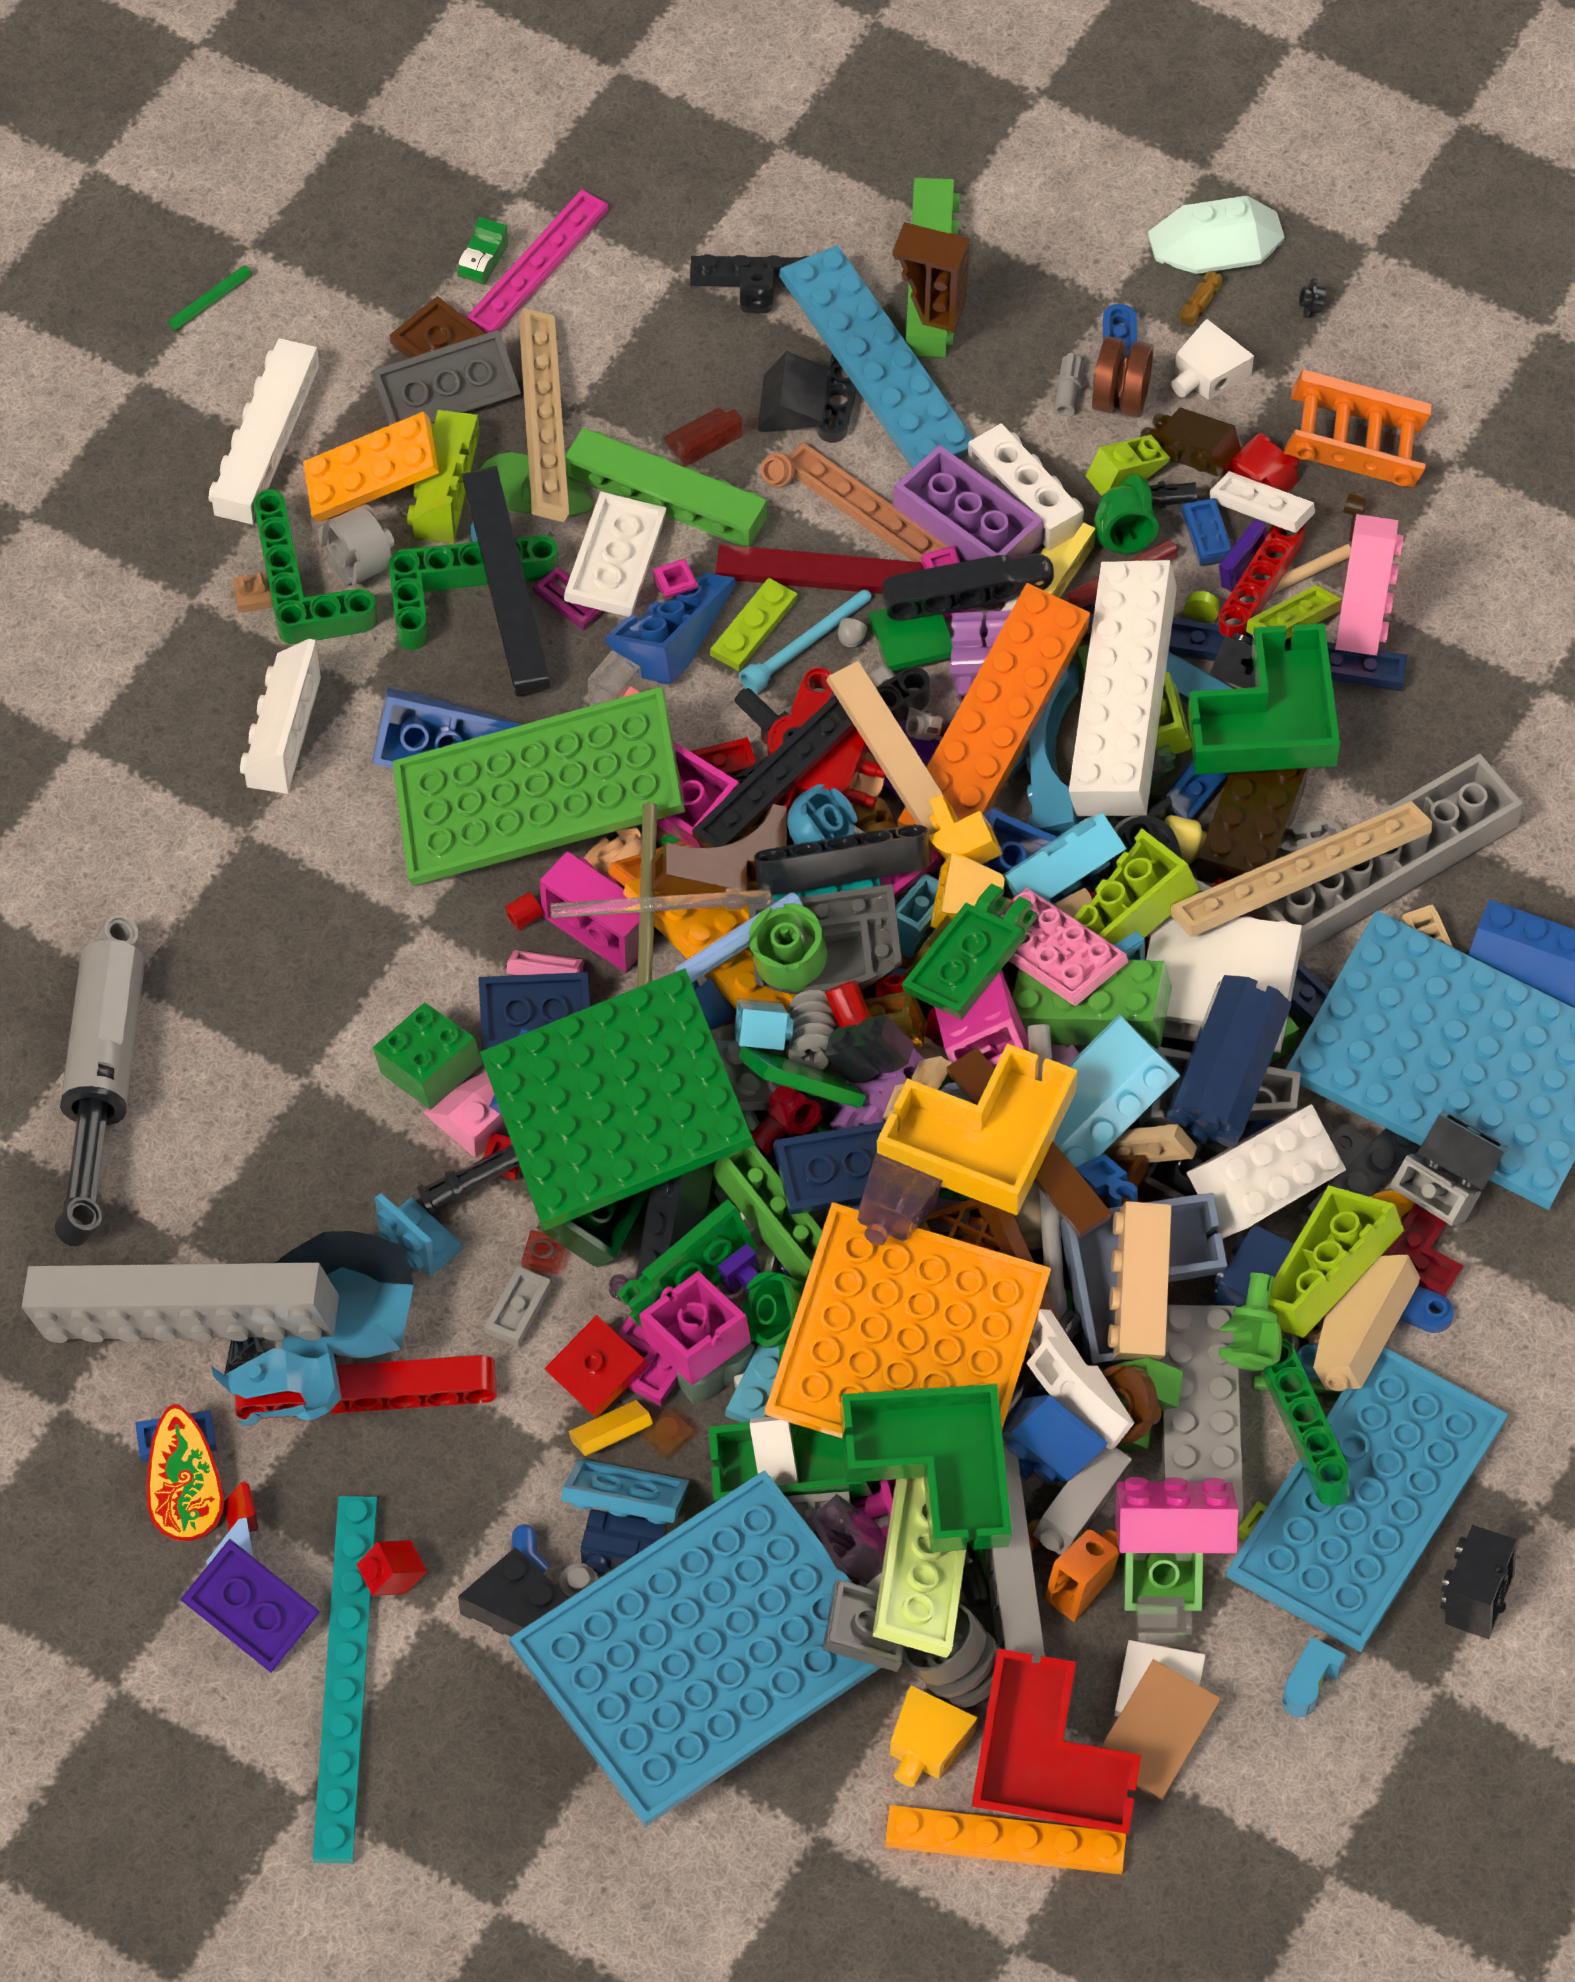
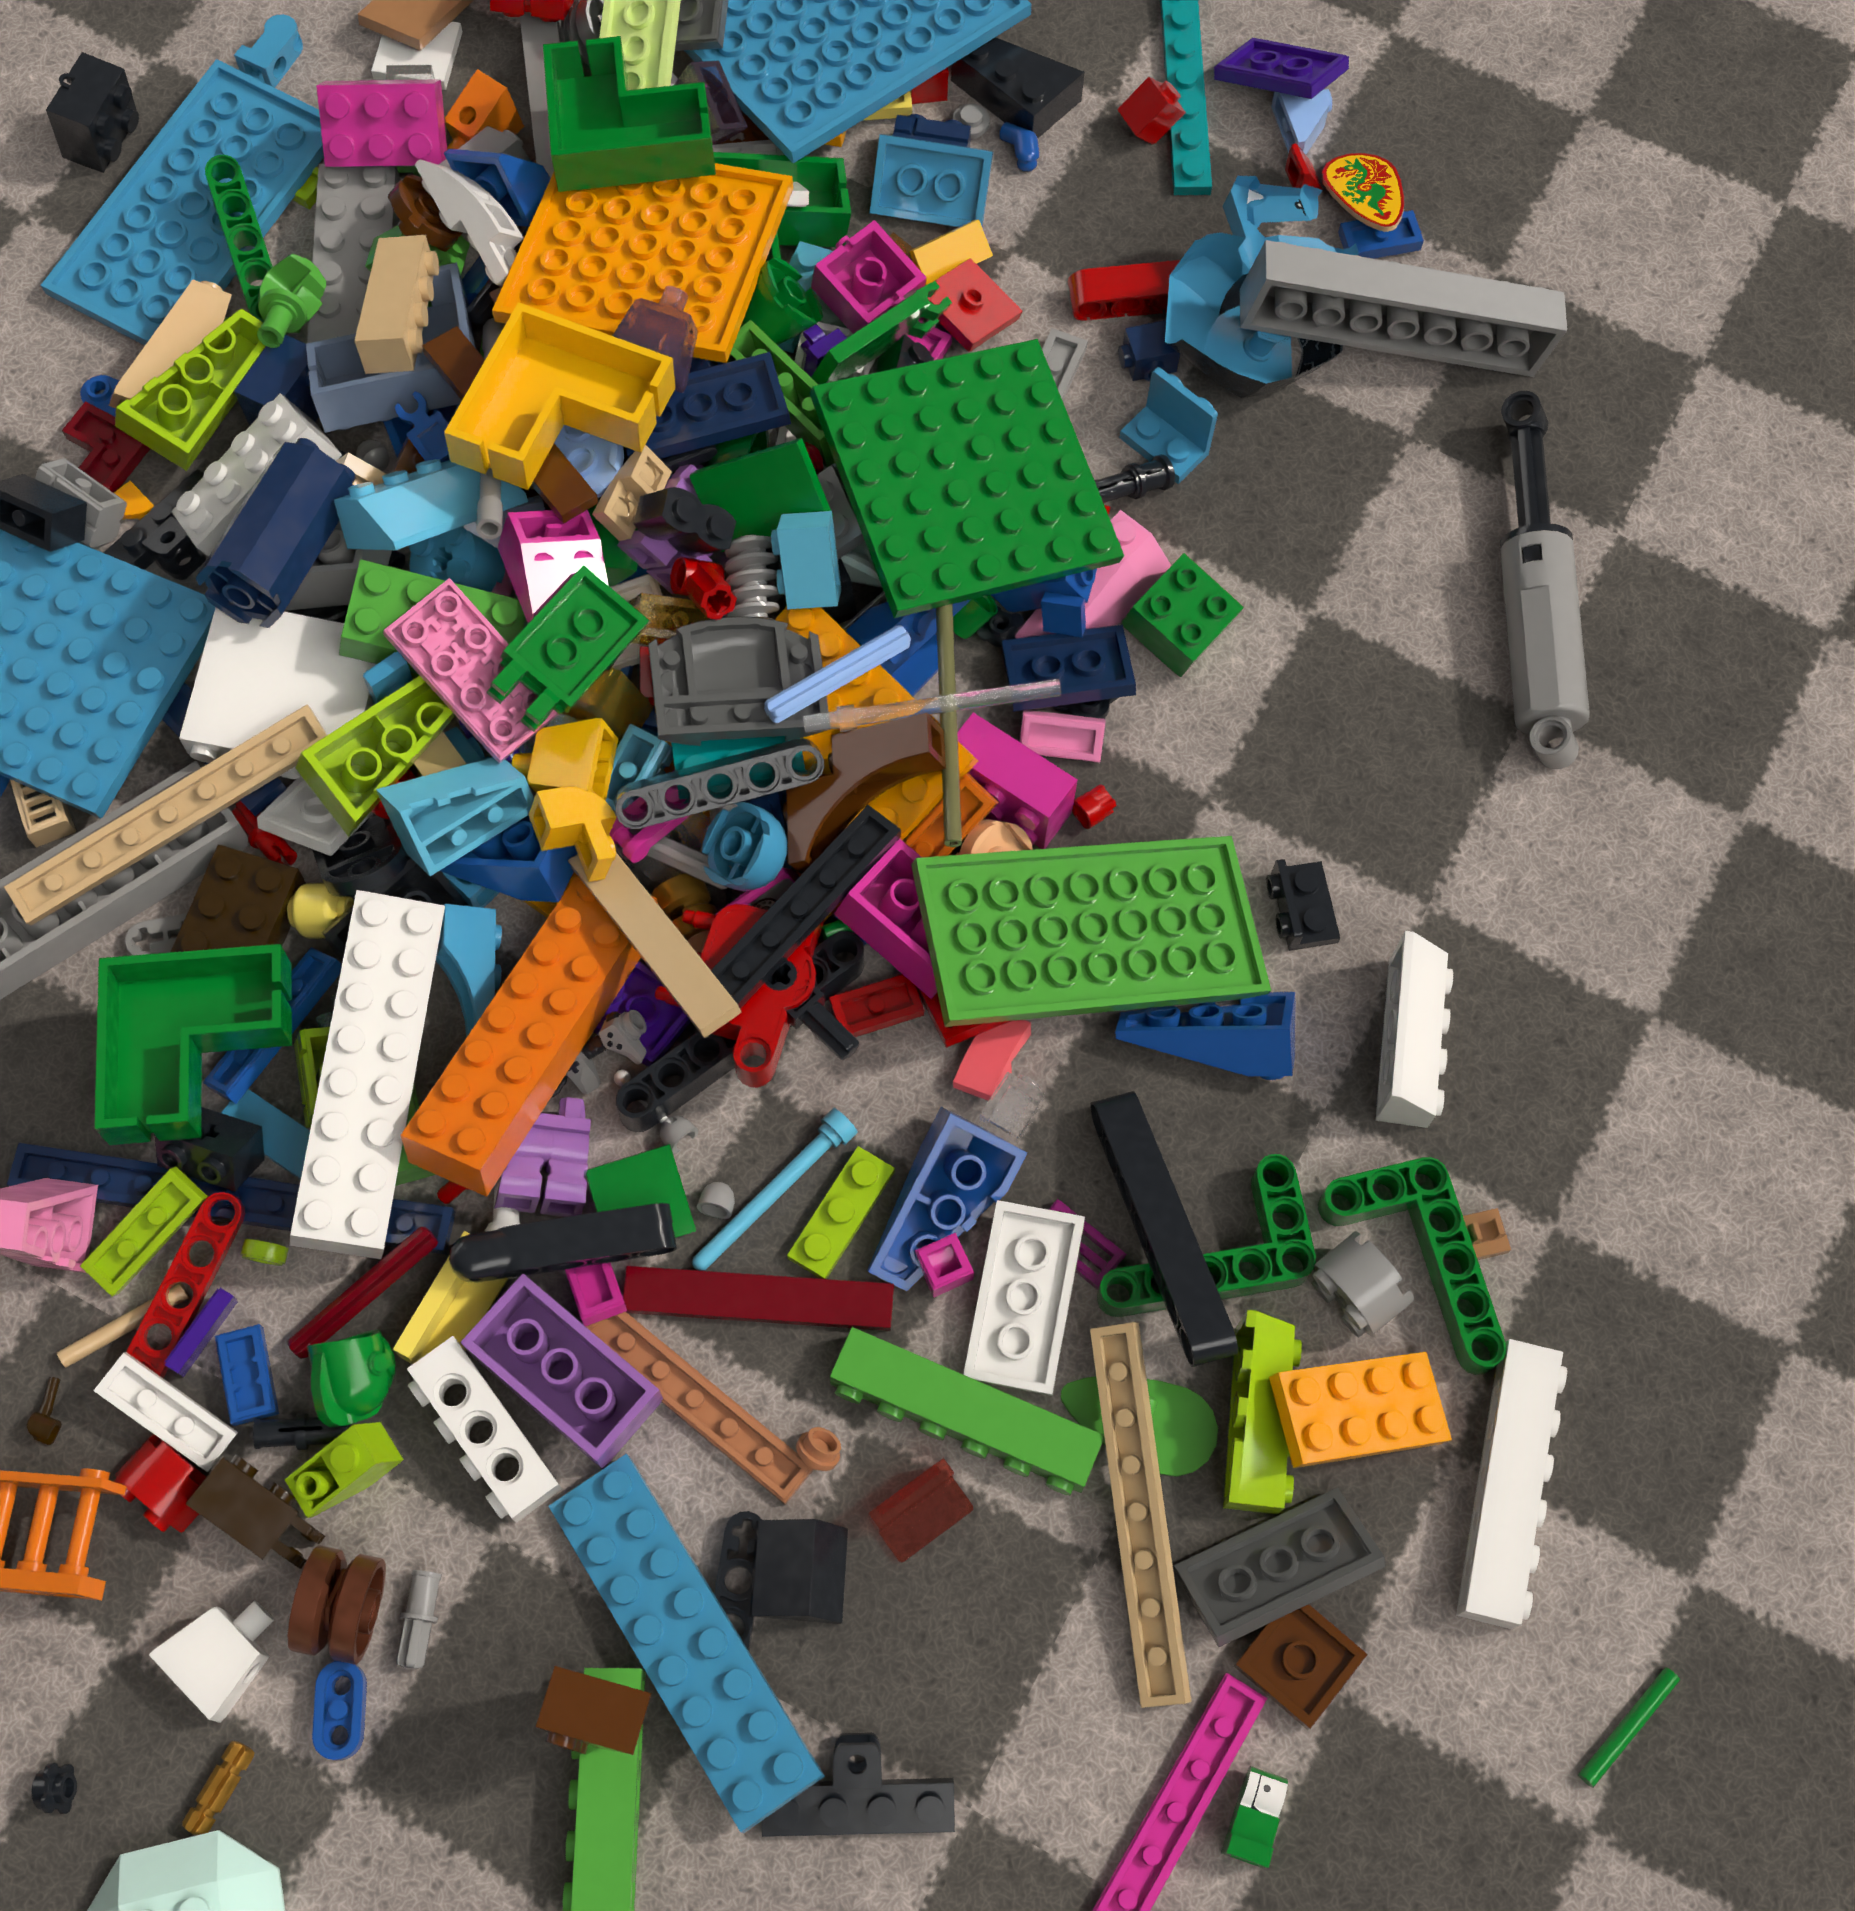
camera: 175 degrees right, 10 degrees up
(353, 830) = (1303, 905): none -> black bracket
(428, 1317) = (1146, 350): none -> dark blue brick
(788, 946) = (779, 638): bright green brick -> none

